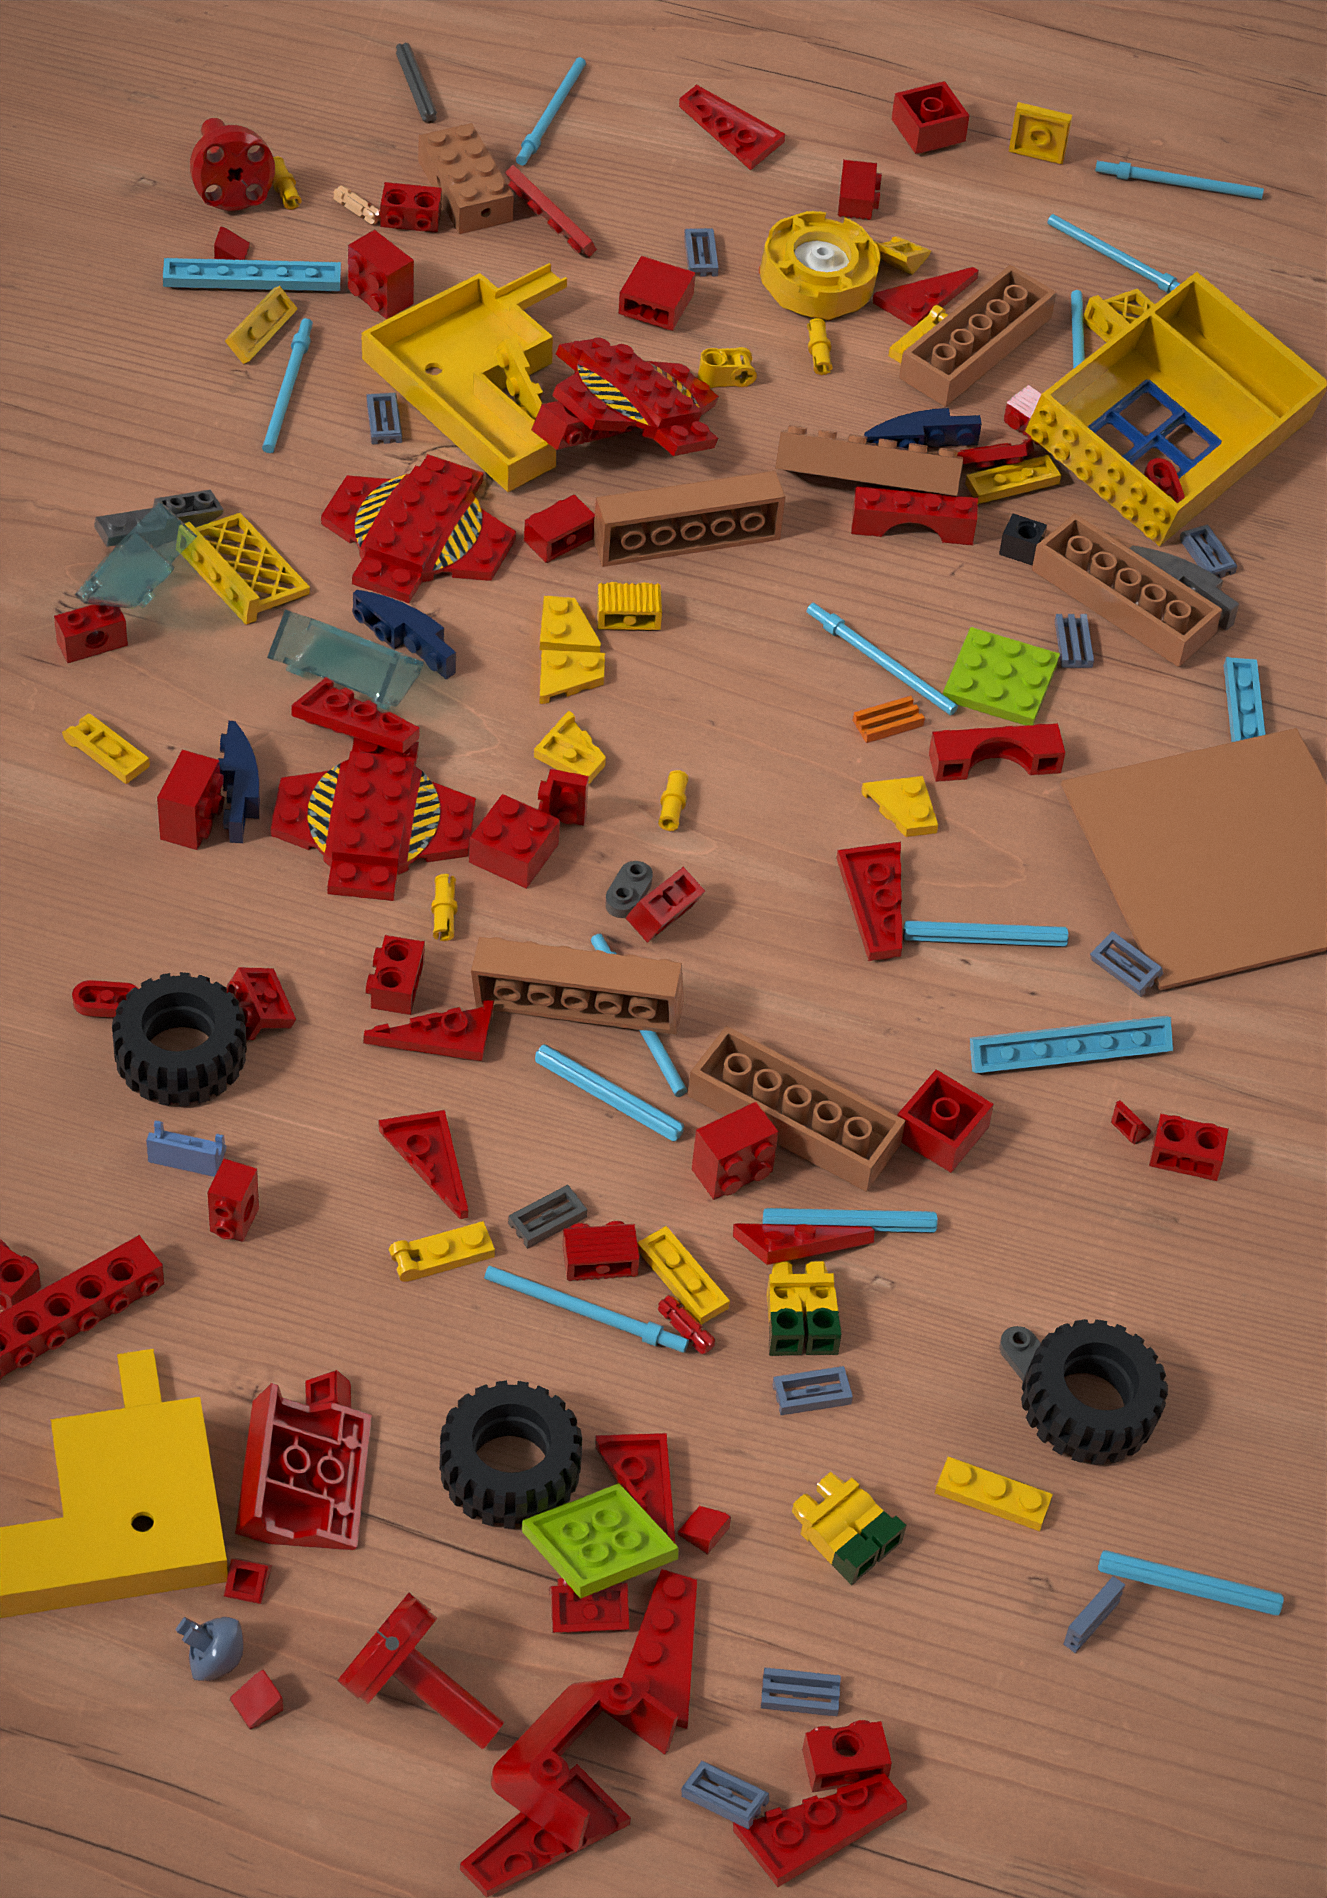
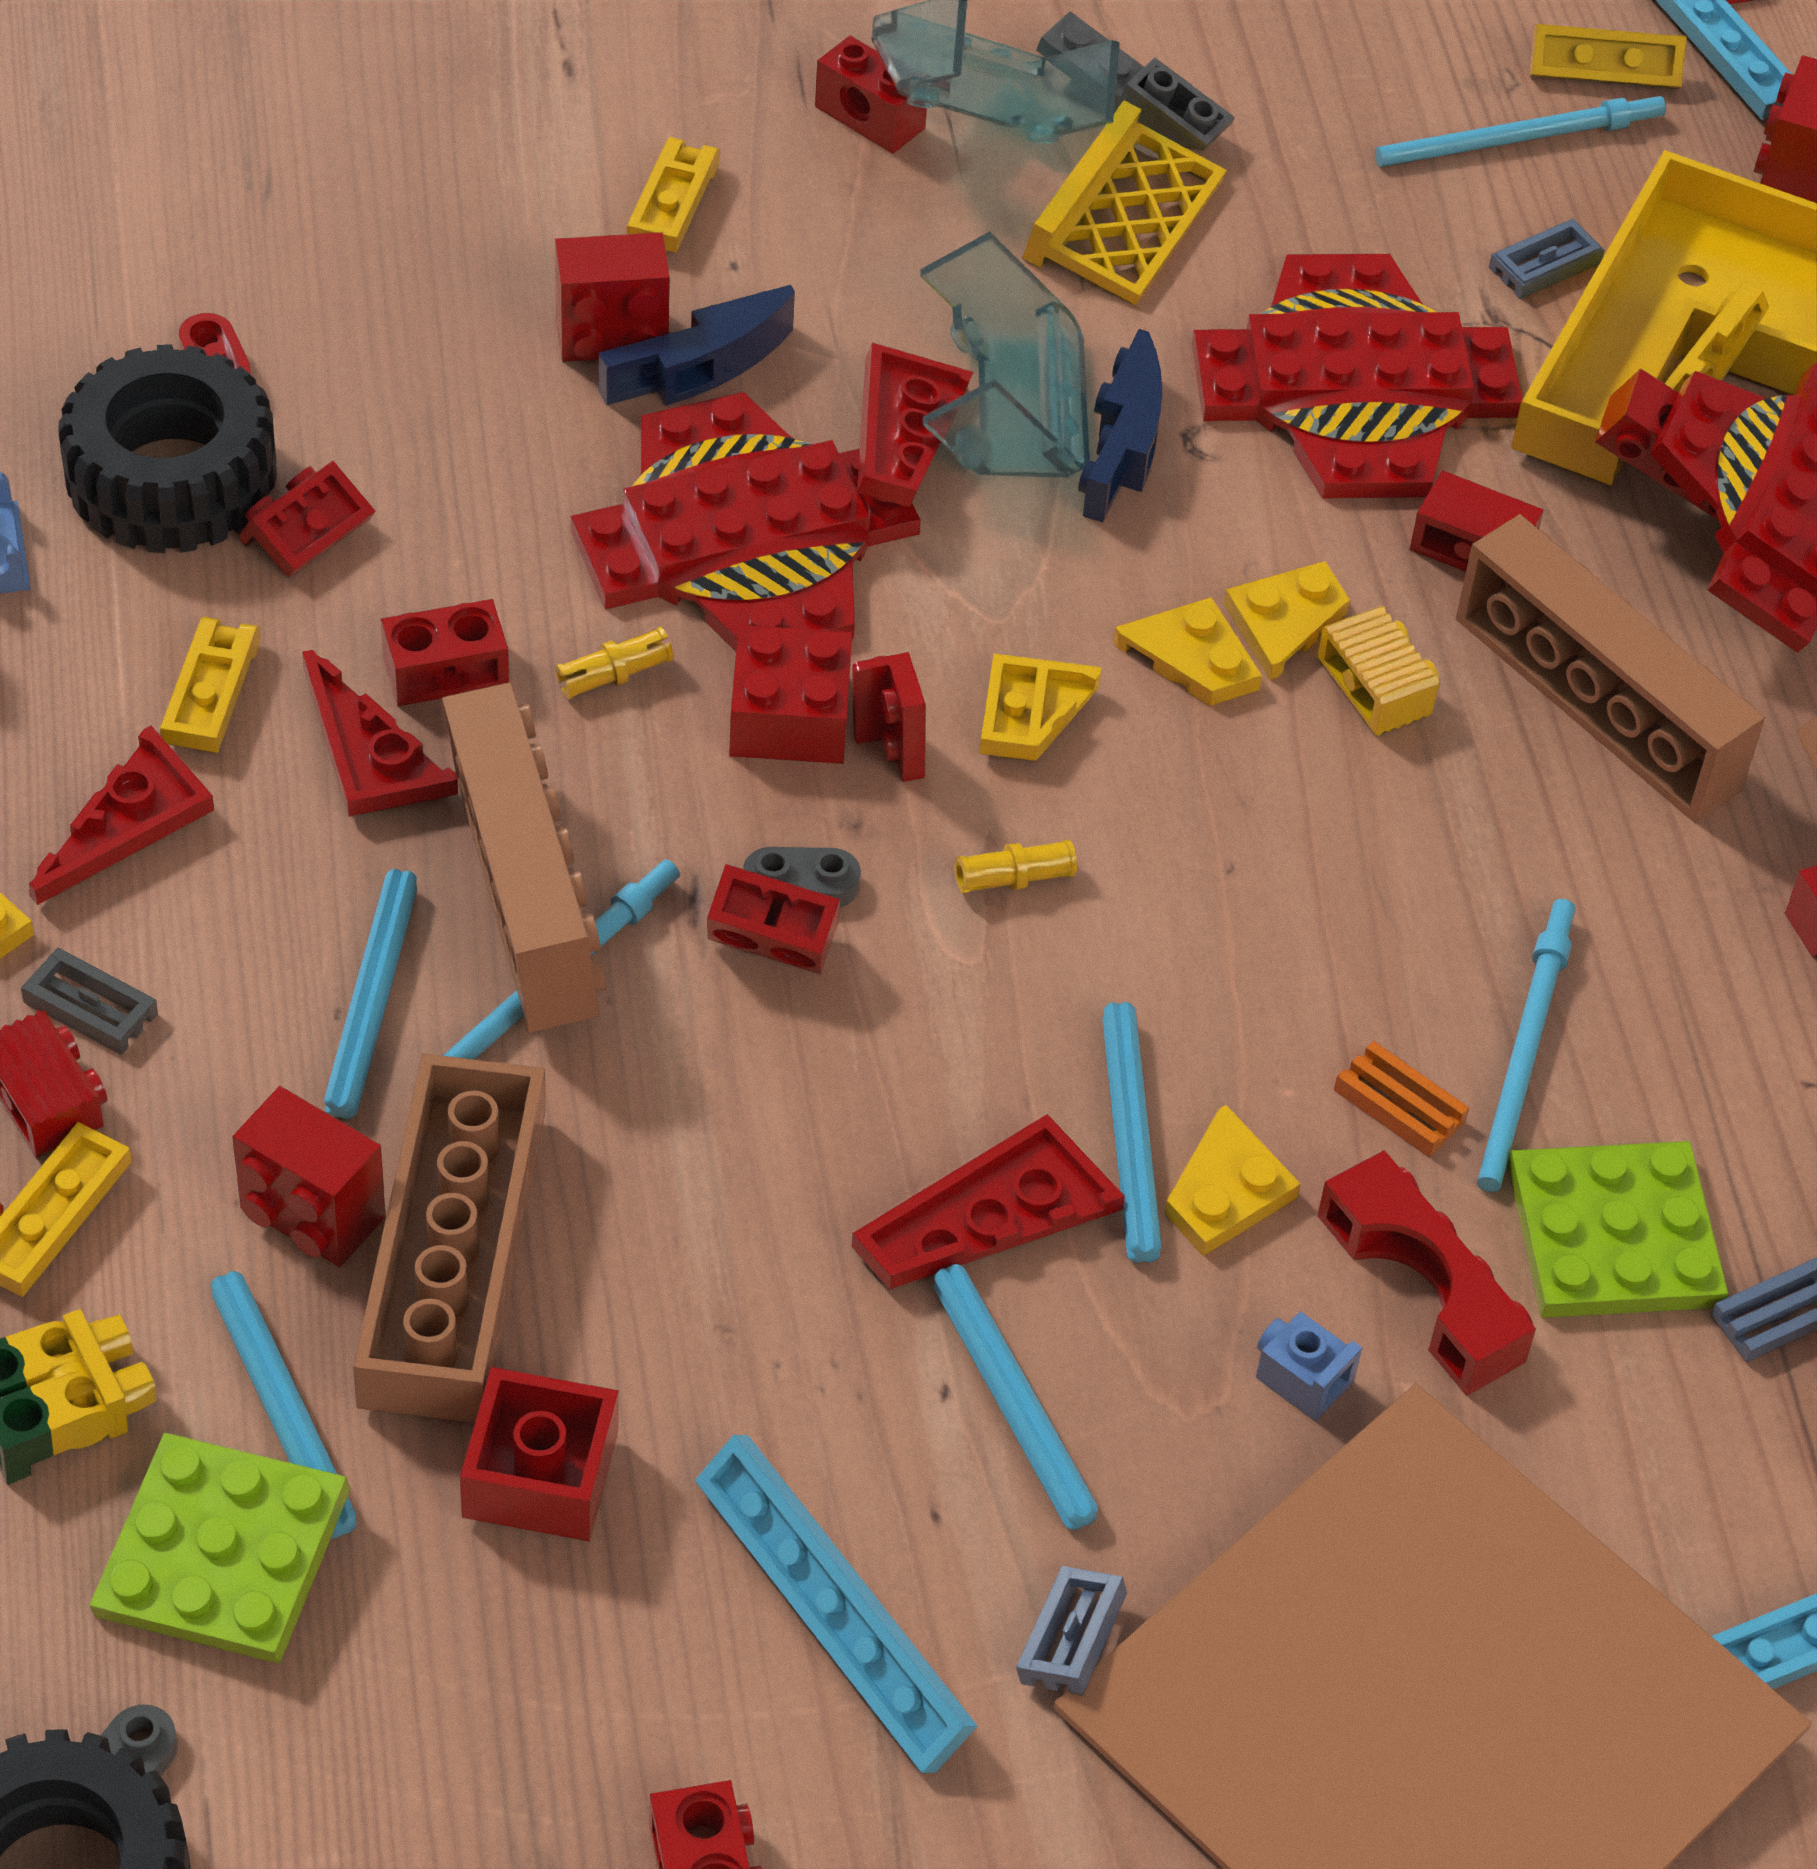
camera: 65 degrees right, 0 degrees up
(356, 1085) = (209, 684): none -> yellow plate
(788, 1242) = (182, 1323): red wing -> none
(855, 825) = (1131, 1133): none -> medium azure axle
(929, 1271) = (221, 1547): none -> lime plate
(1026, 817) = (1306, 1364): none -> medium blue brick
(1129, 1123) = (719, 1750): red slope -> none

